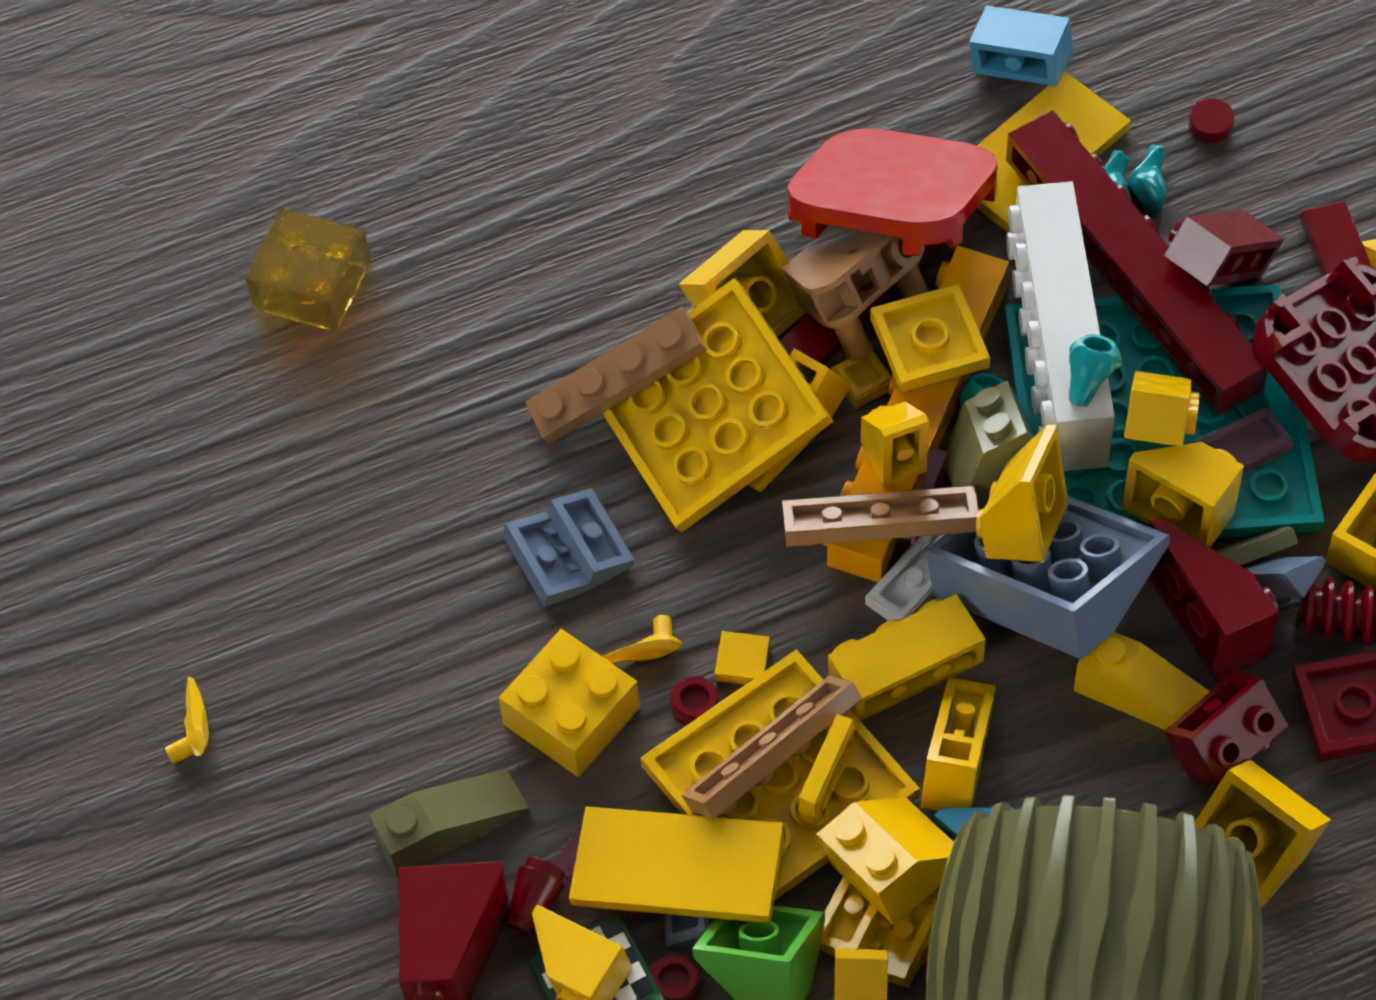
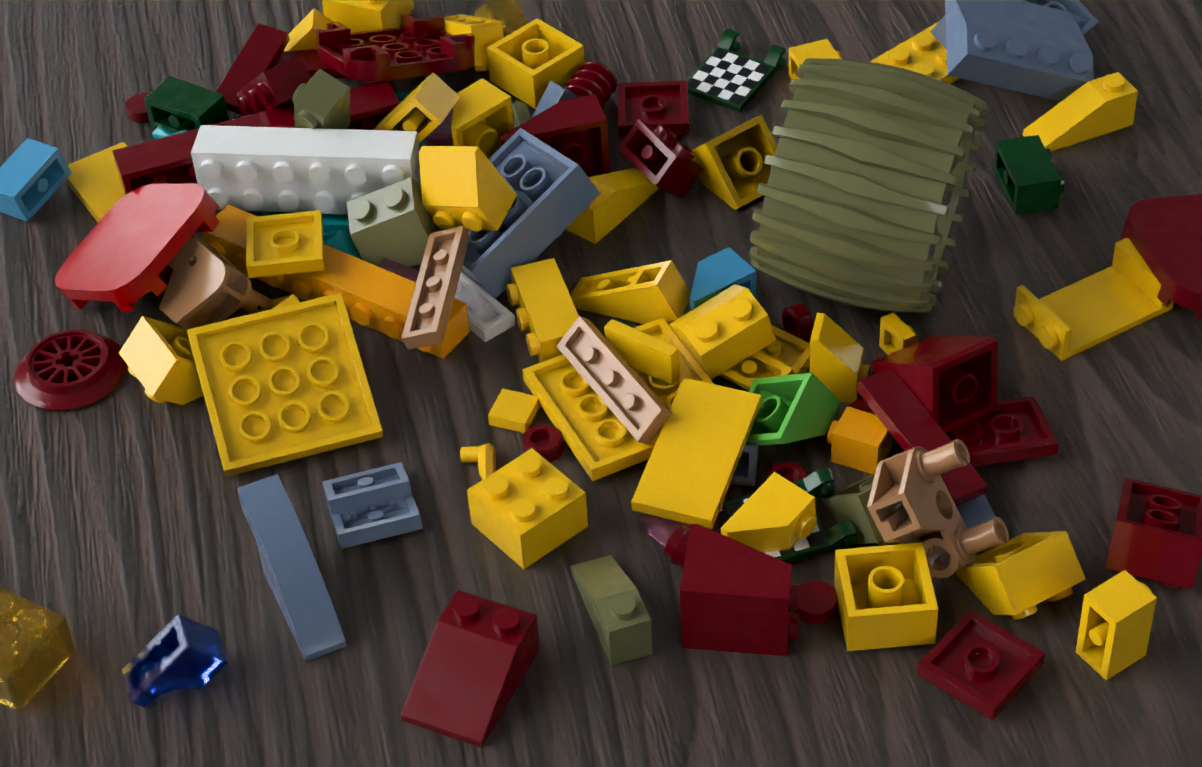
camera: 80 degrees left, 15 degrees down
(308, 423) = (177, 658): none -> clear blue arch
(338, 699) = (471, 668): none -> dark red slope
(435, 488) = (291, 568): none -> sand blue slope
(615, 375) = (227, 434): medium nougat plate -> none
(714, 230) = (50, 384): none -> dark red piece
(896, 442) = (374, 262): yellow slope -> none
(1091, 362) = (376, 124): teal animal -> none
(1135, 302) = (322, 103): none -> olive brick
(1205, 166) = (184, 106): none -> dark green brick
(1309, 210) = (257, 55): none -> dark red tile

